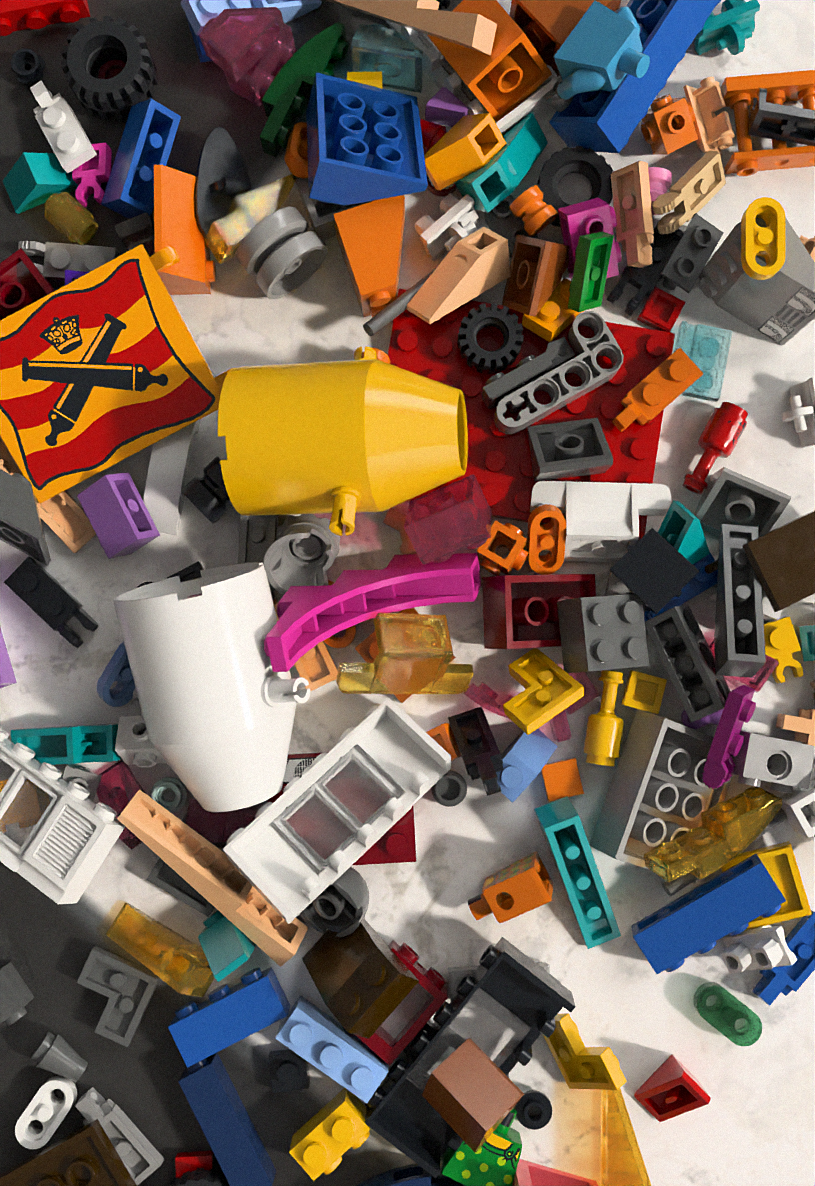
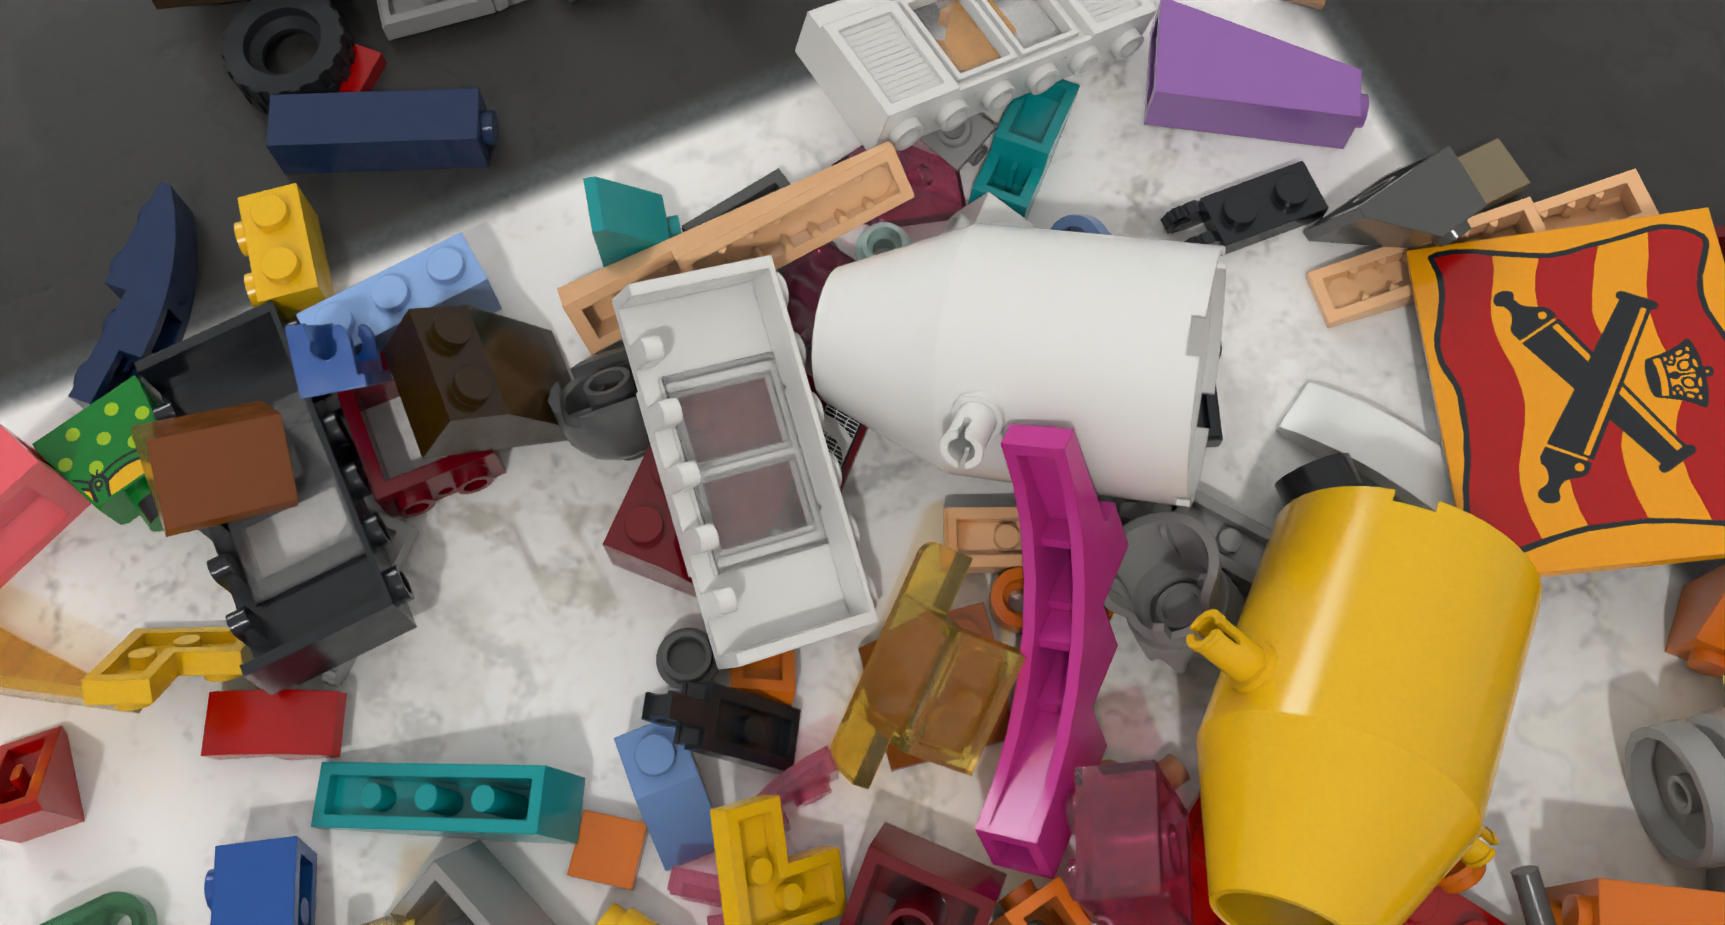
camera: 115 degrees right, 15 degrees down
(118, 515) = (1345, 351): medium lavender brick -> none
(128, 992) = (646, 86): dark grey plate -> none
(162, 951) = (668, 145): clear yellow slope -> none
(228, 1015) = (529, 197): blue brick -> none
(288, 1071) = (402, 238): black plate -> none
(396, 1058) = (327, 359): none -> blue hinge
(525, 882) = (476, 683): orange torso -> none
(530, 1099) = (150, 570): black plate -> none
(582, 979) = (276, 725): none -> red slope

